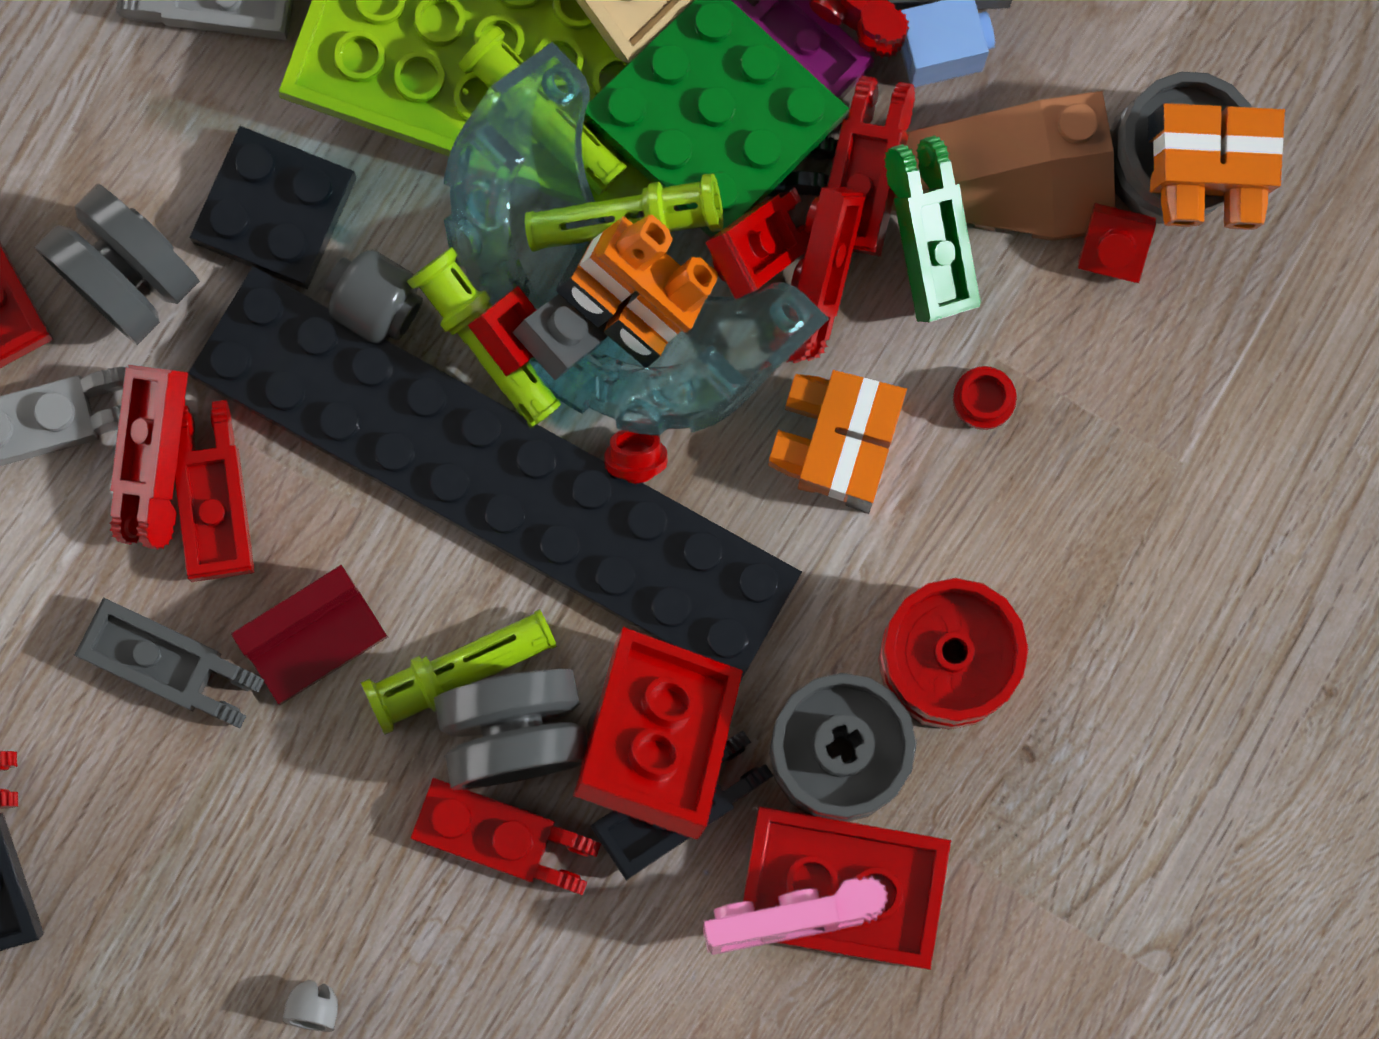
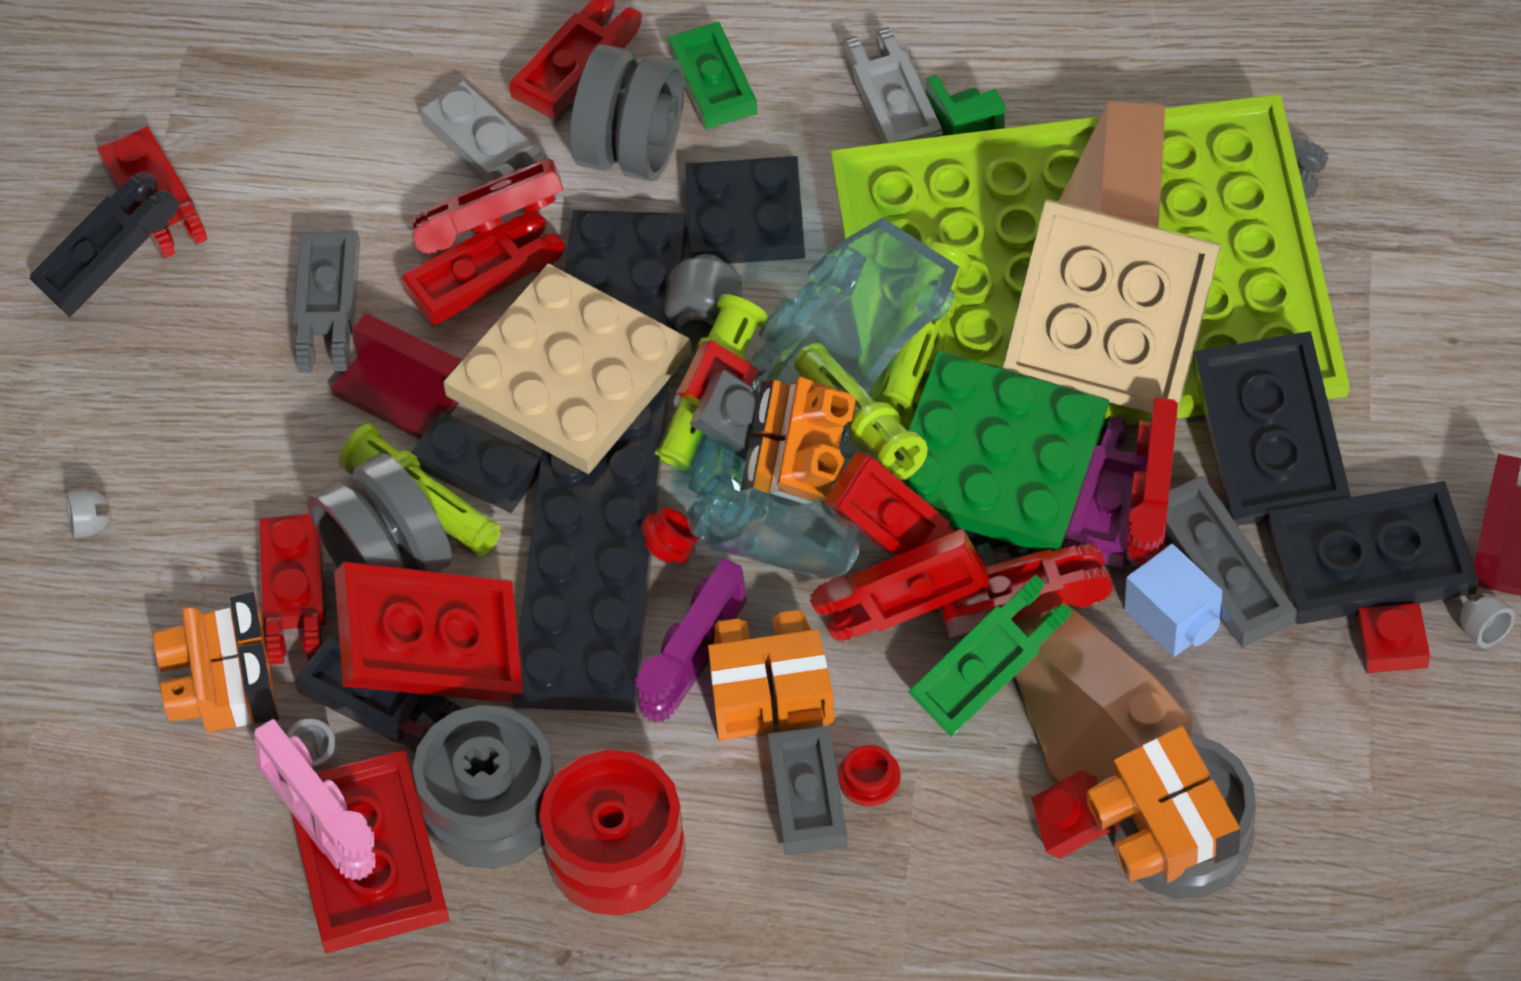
camera: 70 degrees right, 25 degrees down
(87, 155) = (713, 75): none -> green plate
(399, 464) = (568, 368): none -> tan plate
(443, 599) = (477, 462): none -> black plate
(541, 938) = (227, 663): none -> hips
(704, 881) = (322, 737): none -> light grey hinge
(768, 492) = (685, 649): none -> magenta hinge
(976, 459) = (807, 790): none -> dark grey plate

